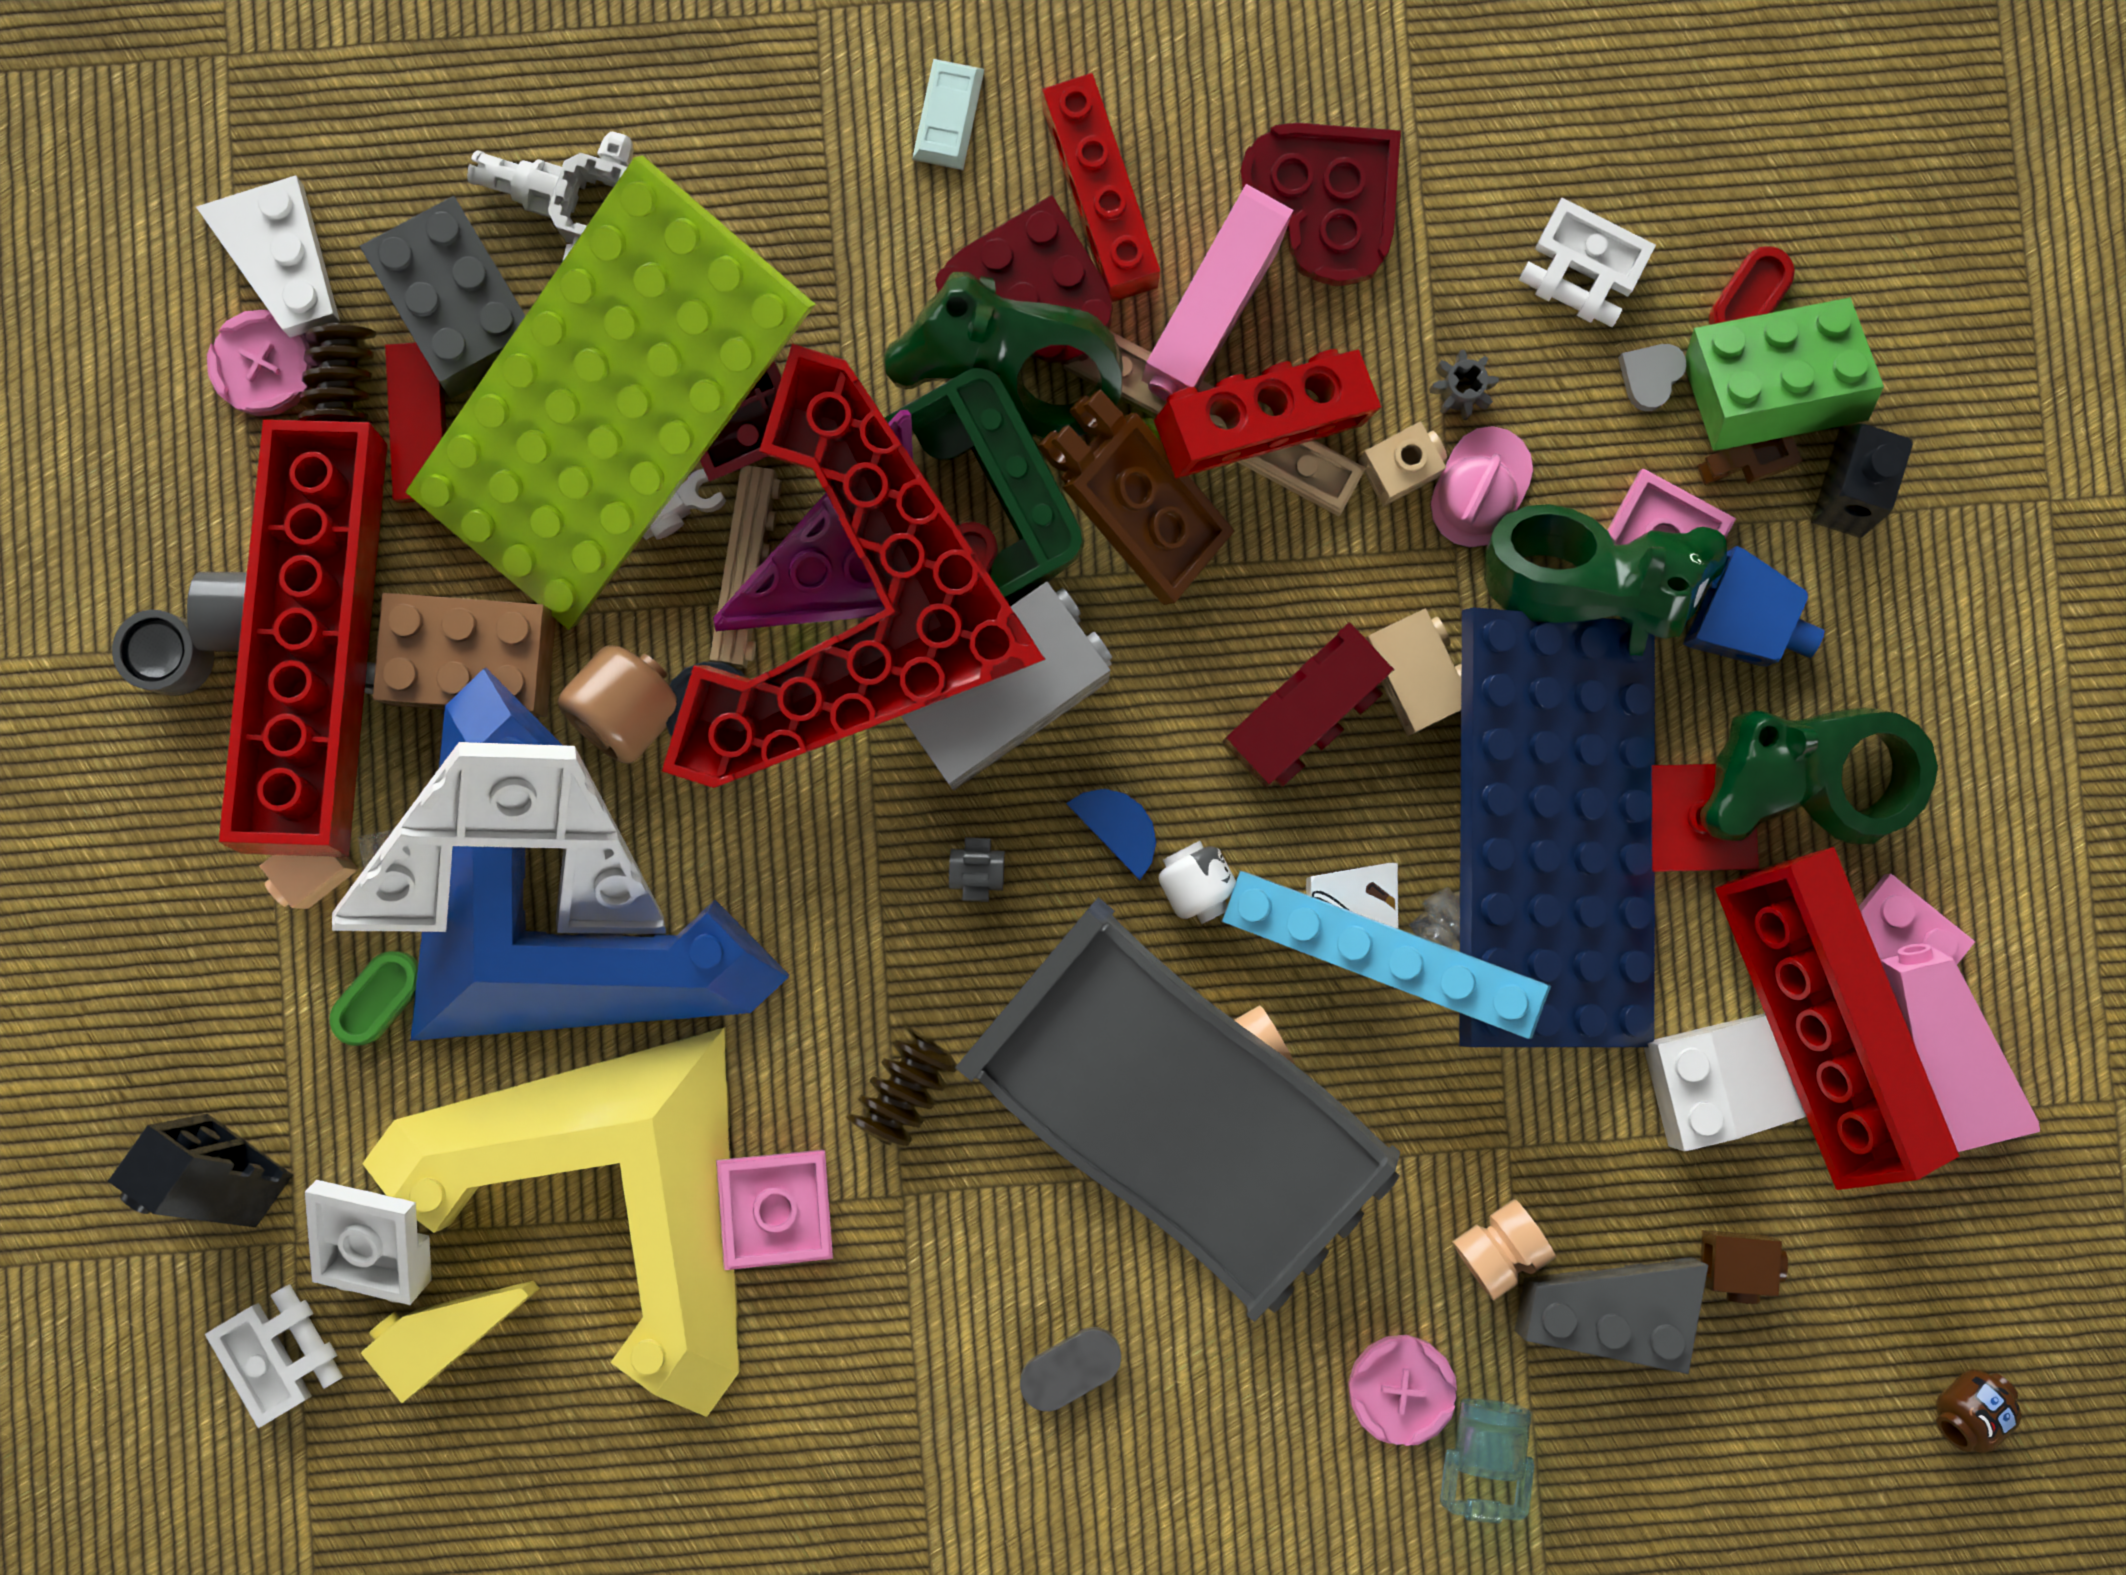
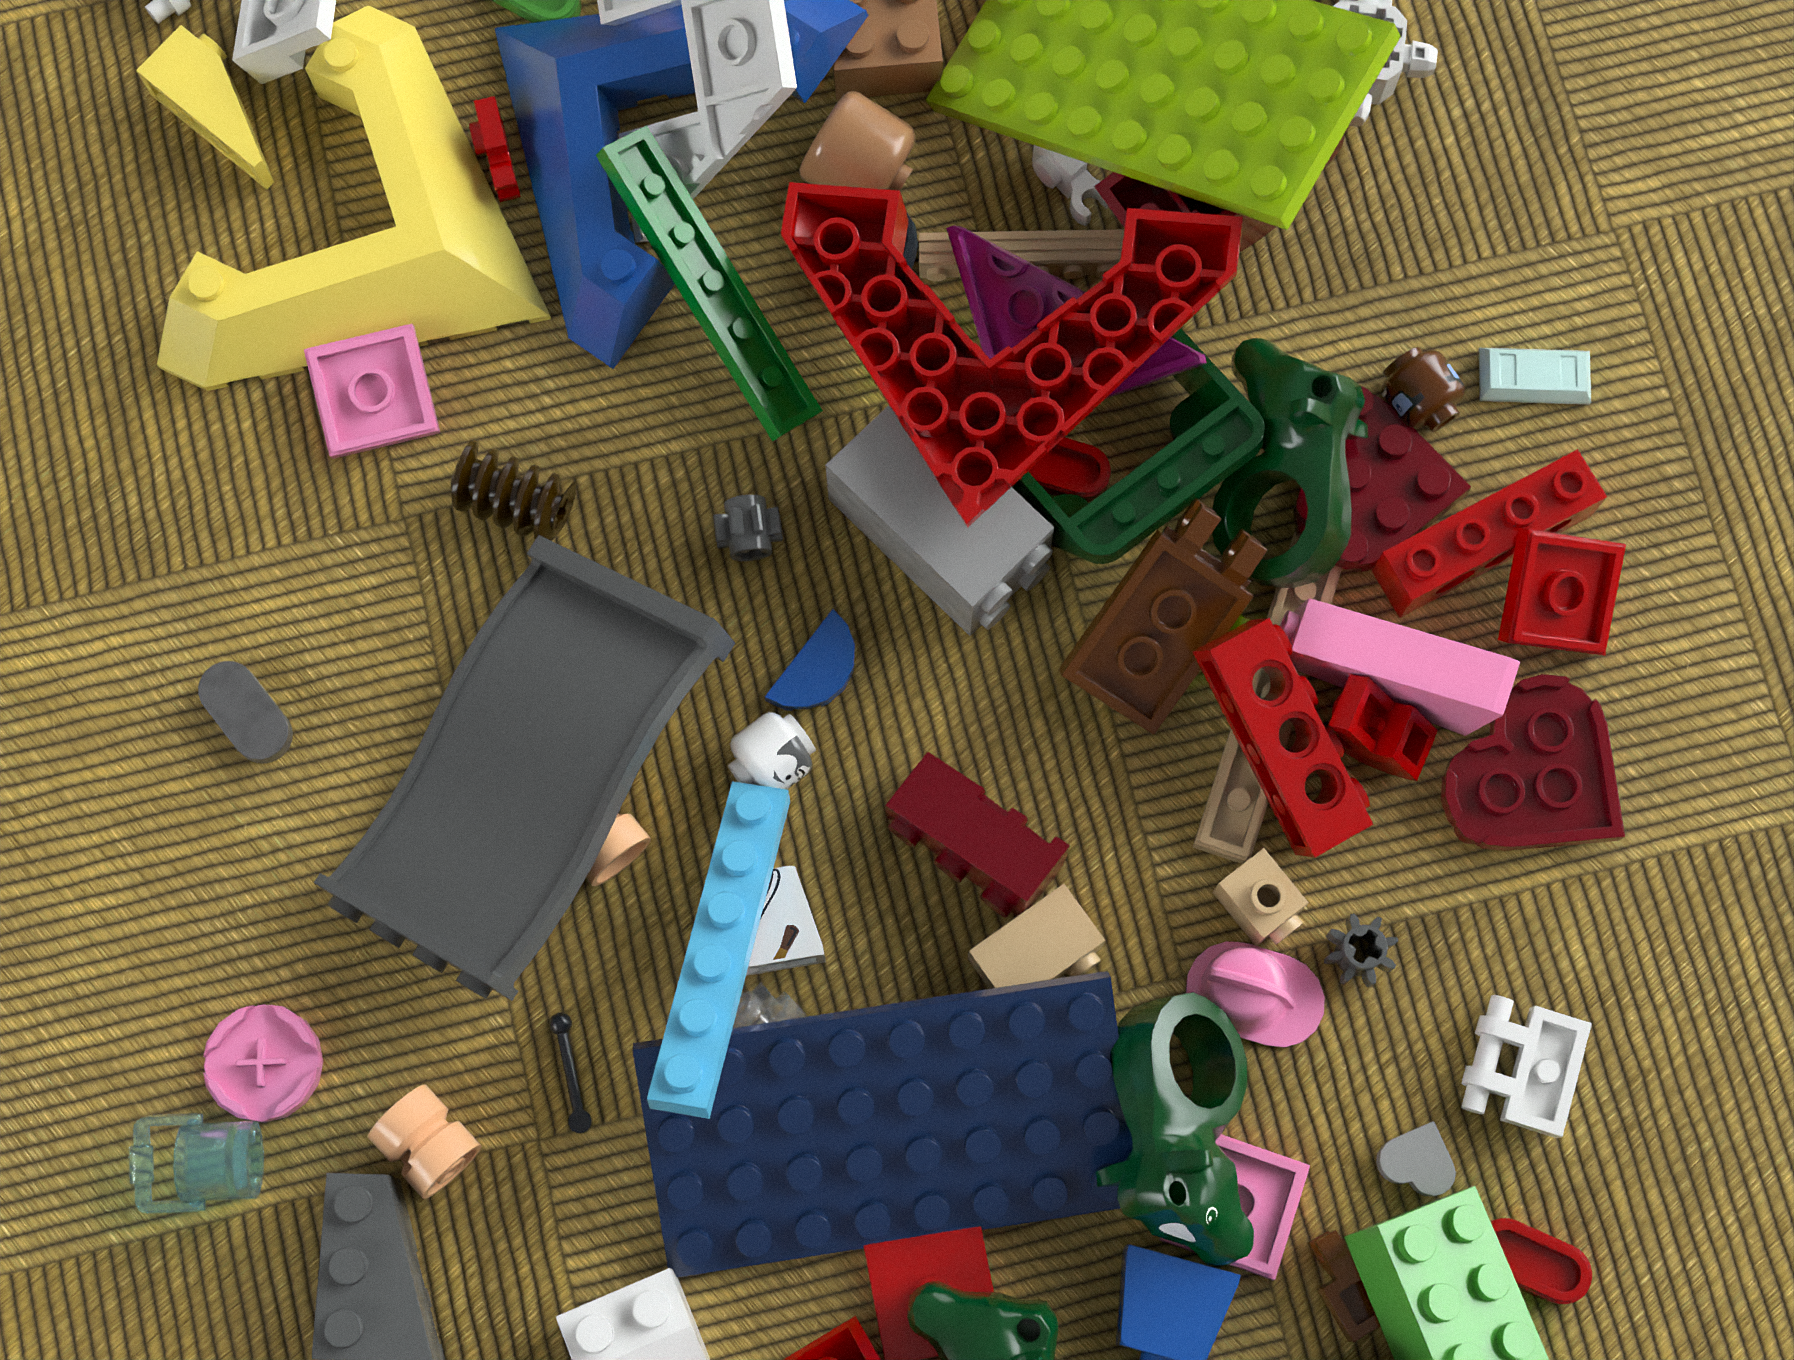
camera: 80 degrees right, 10 degrees down
(533, 1059) = (491, 139): none -> red plate
(730, 868) = (708, 282): none -> green plate
(949, 218) = (1423, 389): none -> reddish brown head
(1170, 134) = (1561, 591): none -> red plate
(1269, 323) = (1380, 731): none -> red brick
(1498, 1107) = (580, 1120): none -> black hinge

